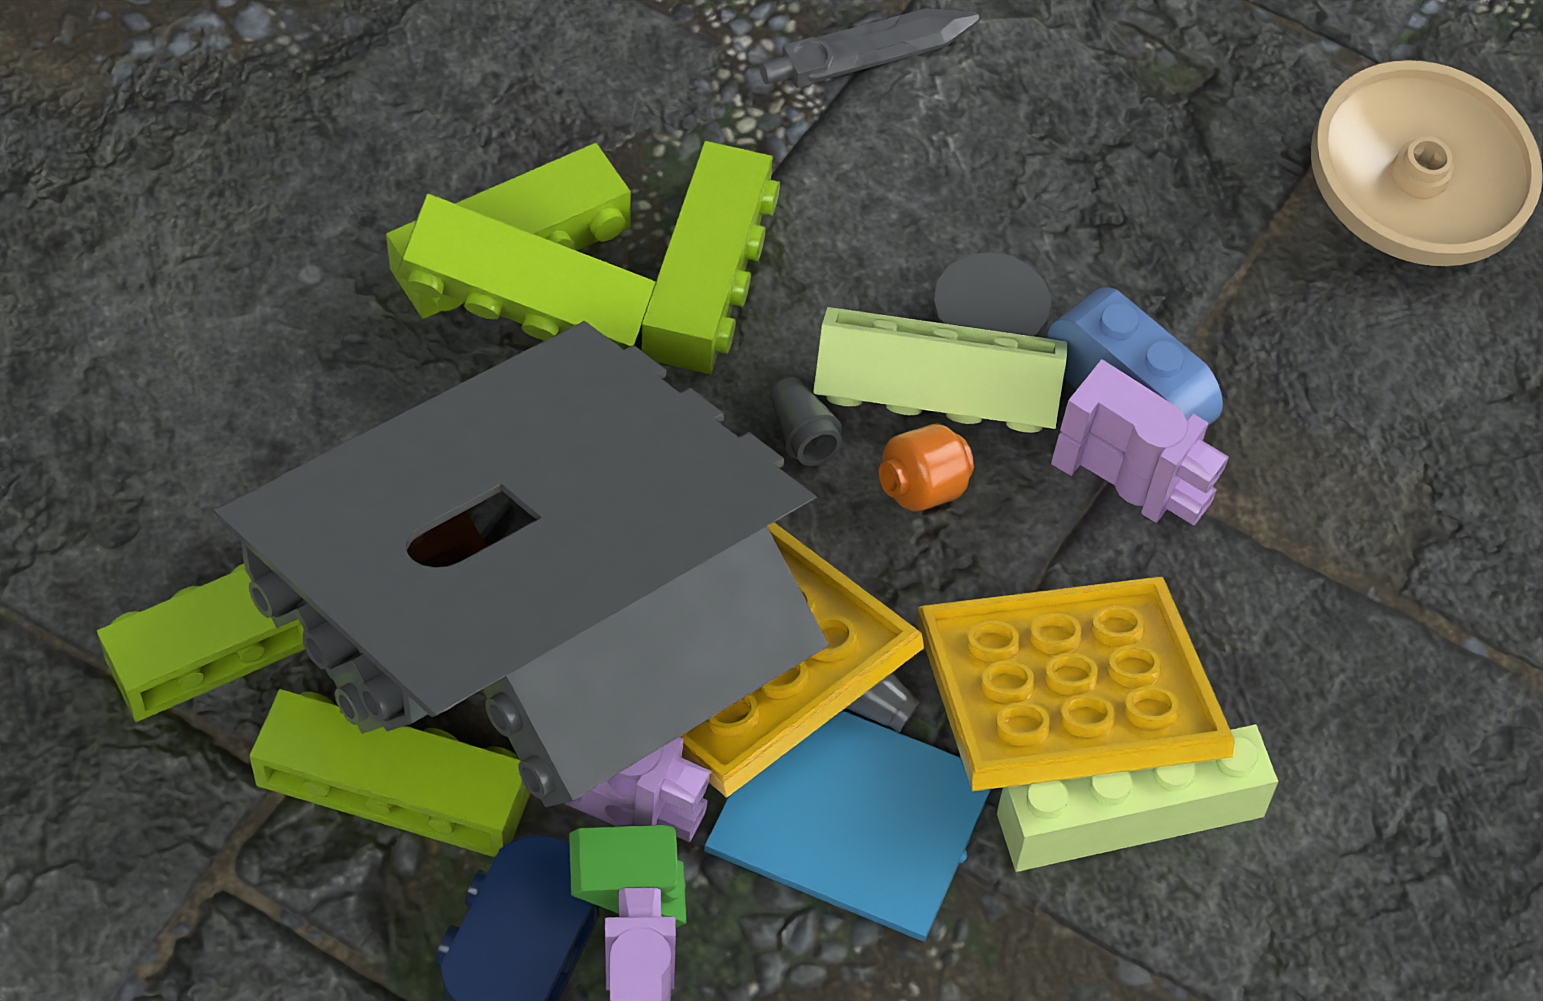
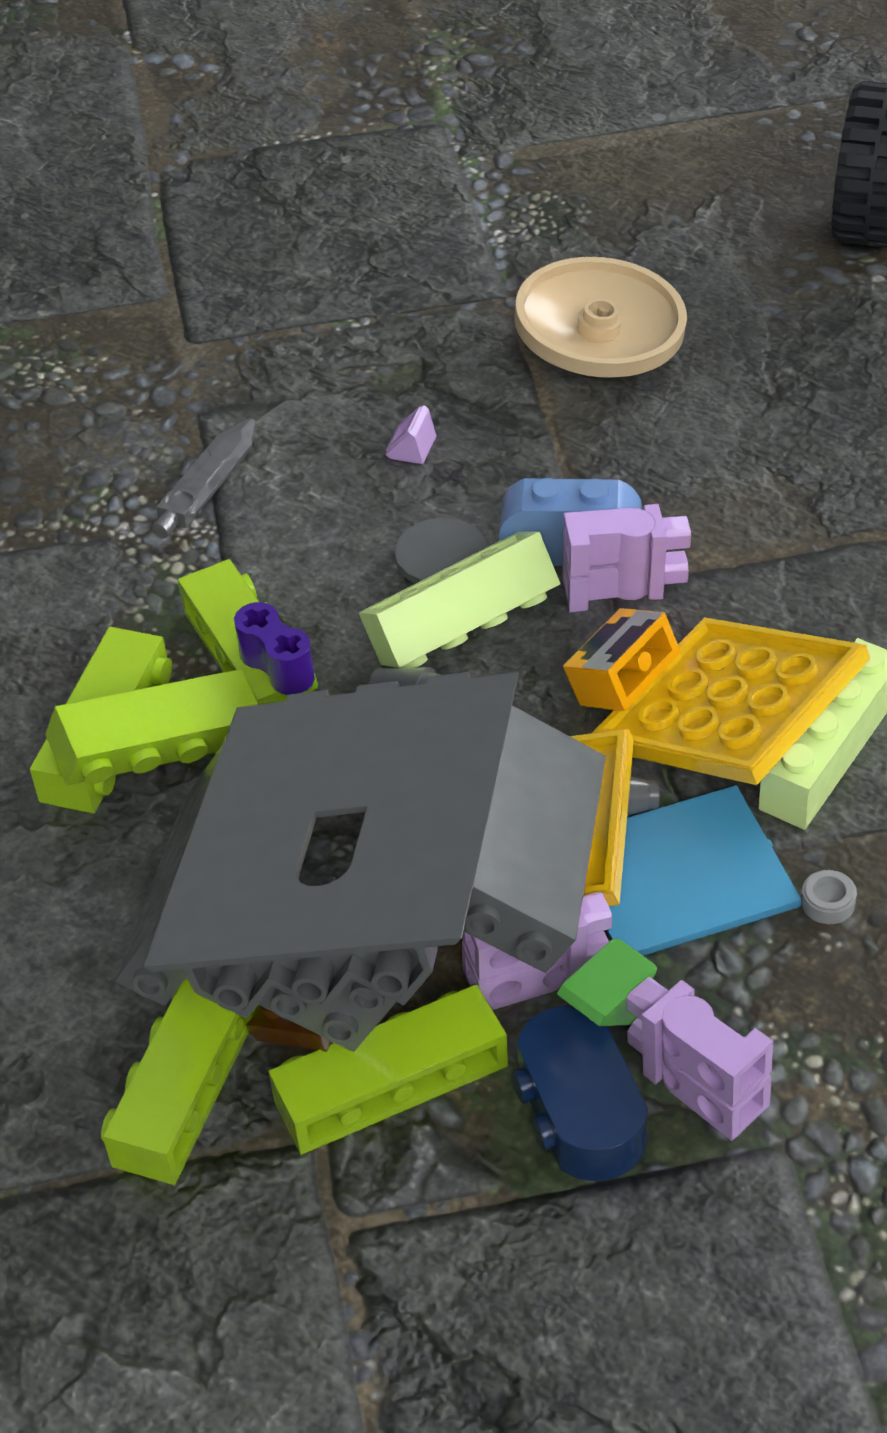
camera: 35 degrees left, 10 degrees down
(697, 285) = (274, 648): none -> dark purple axle
(926, 467) = (511, 649): orange head -> none
(954, 955) = (828, 897): none -> light grey tile
(1022, 555) = (622, 659): none -> light orange brick
(1103, 156) = (412, 437): none -> lavender slope

